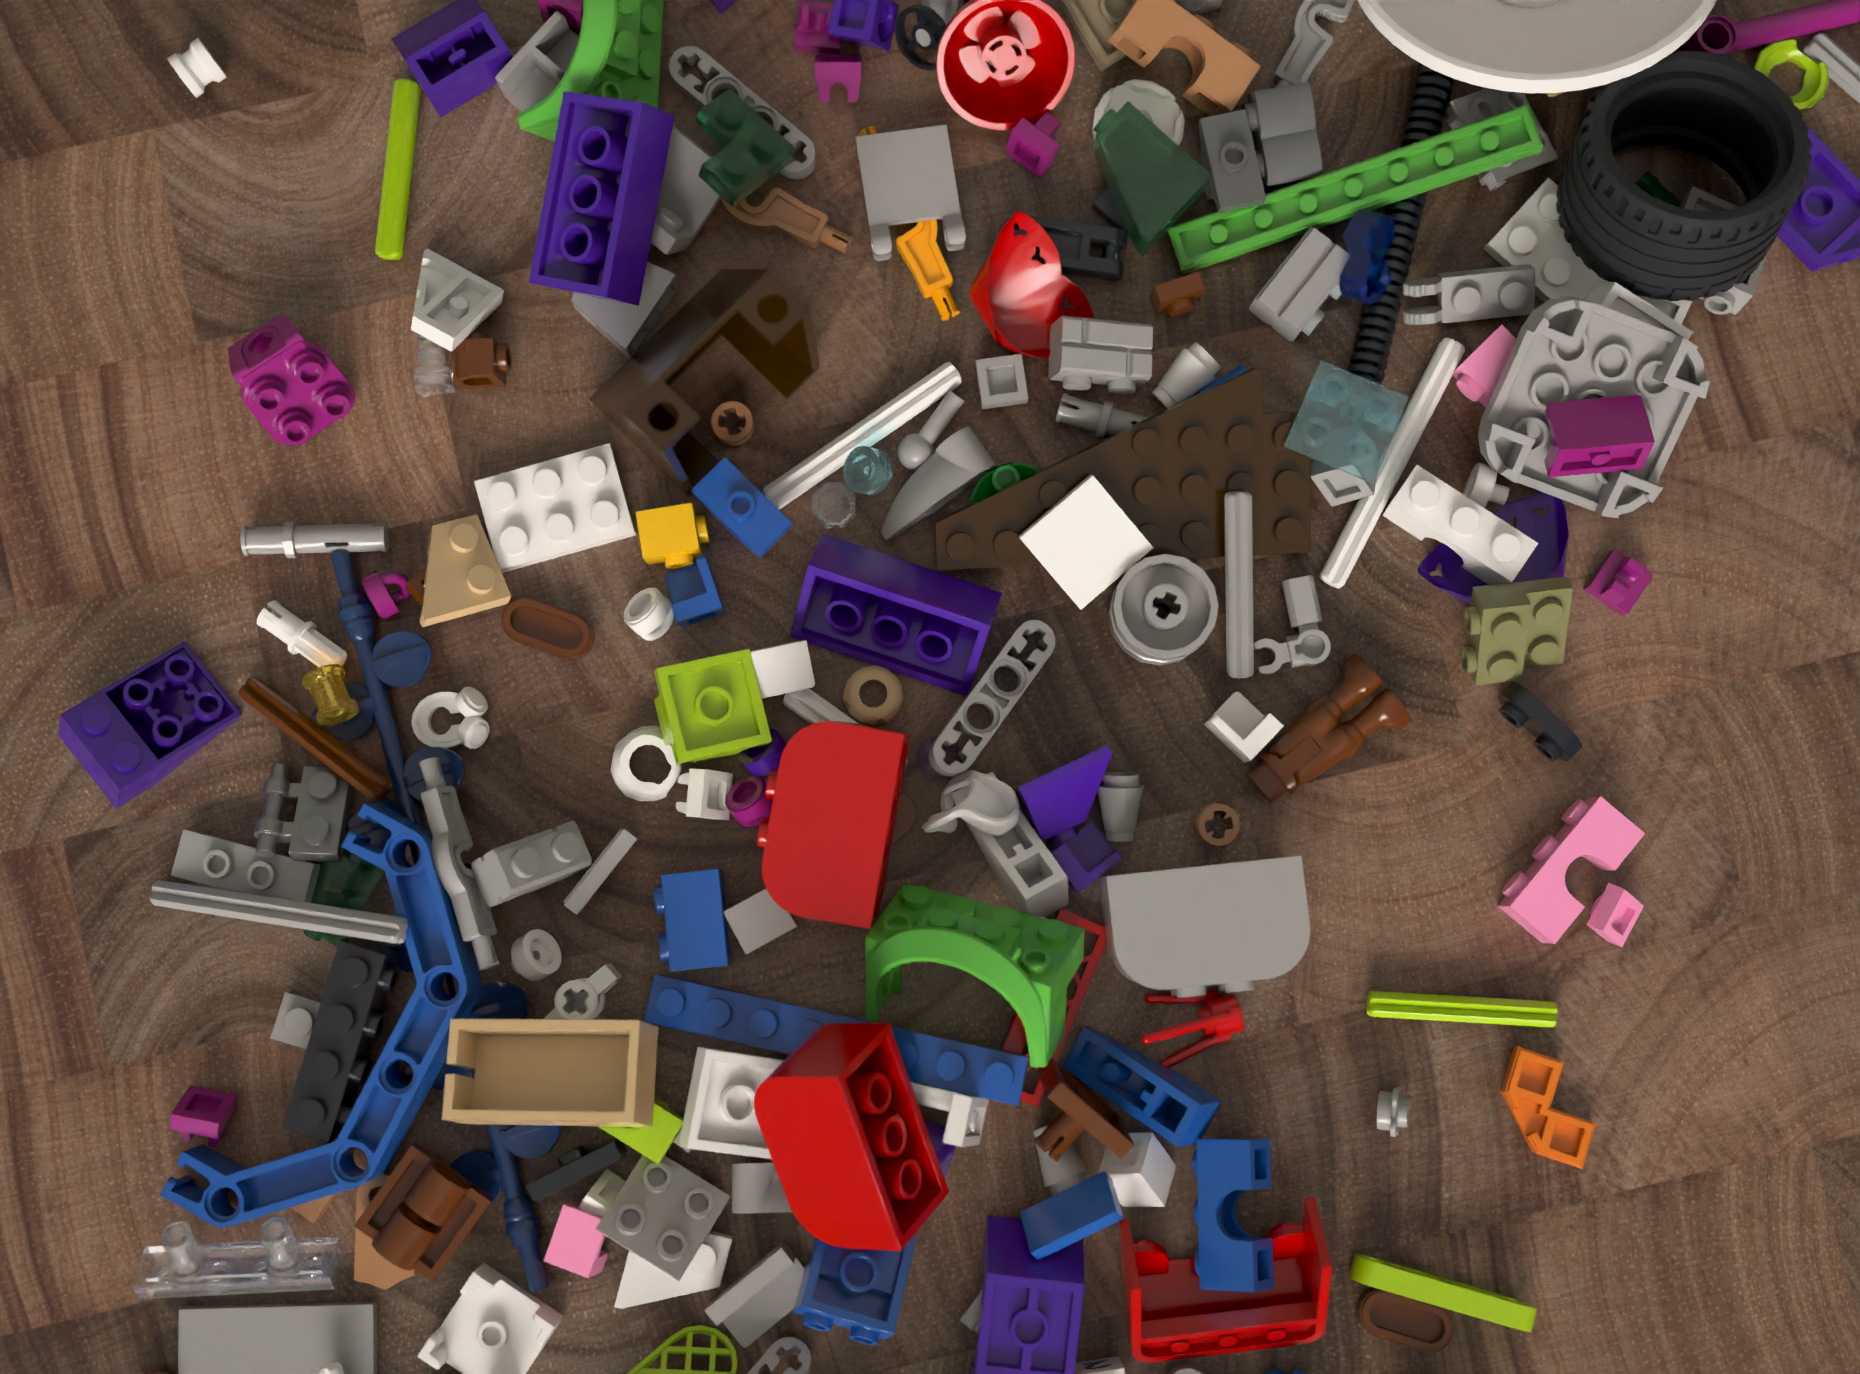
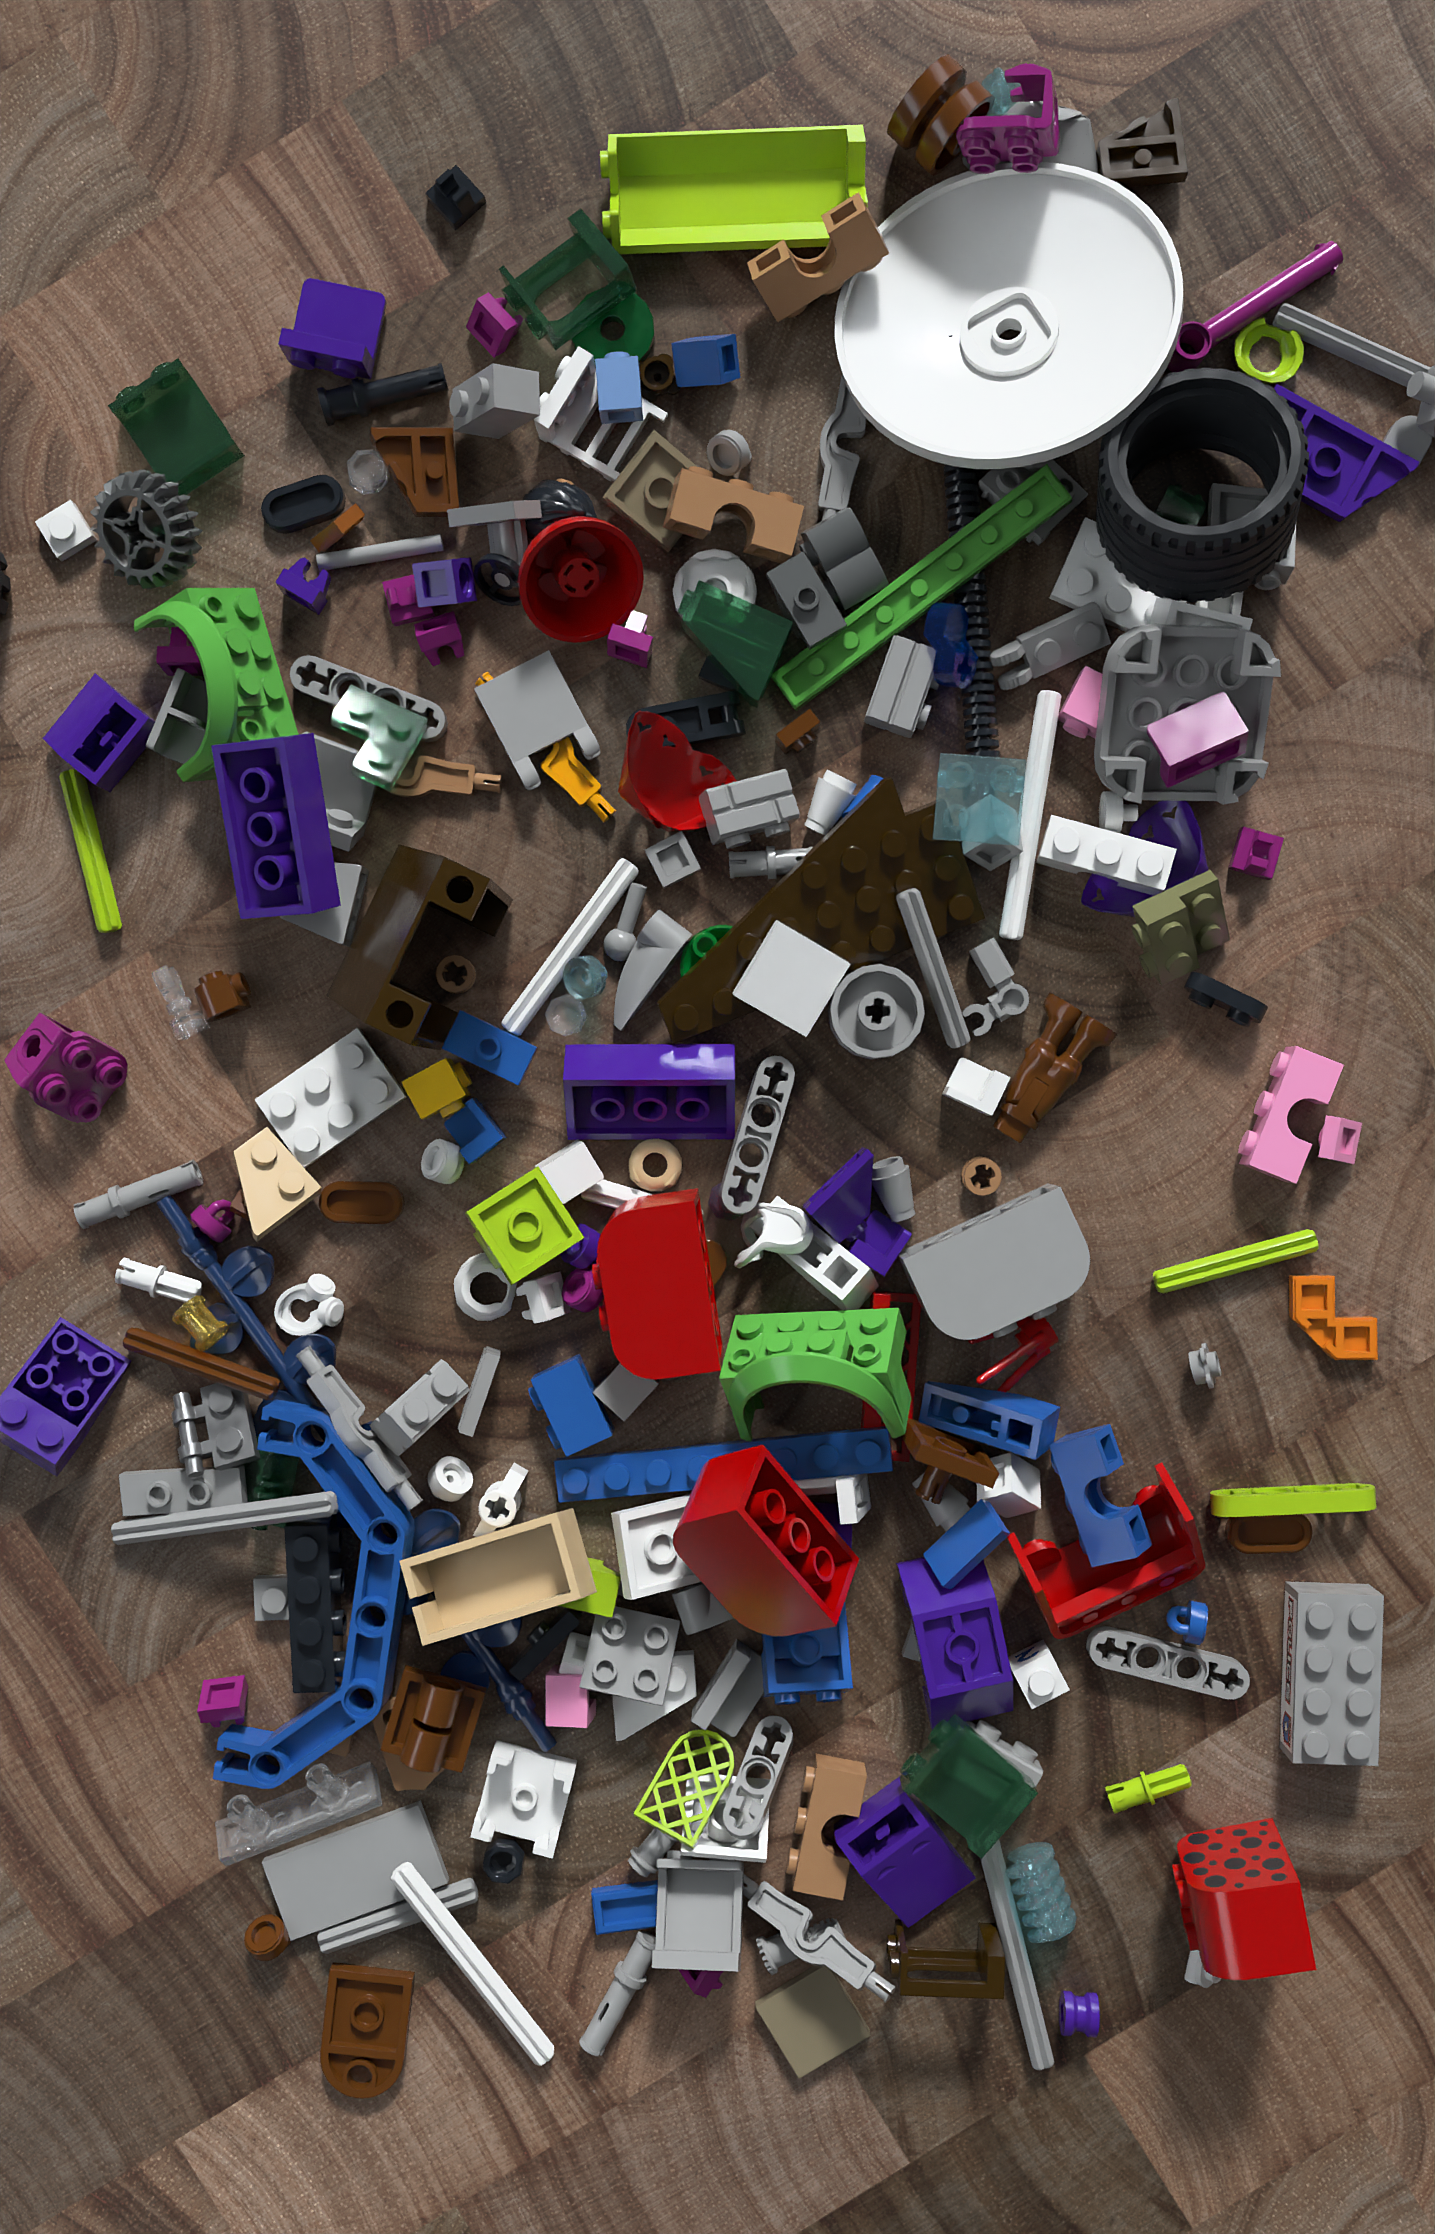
camera: 15 degrees left, 5 degrees up
(451, 301) = (178, 952): white wing -> none

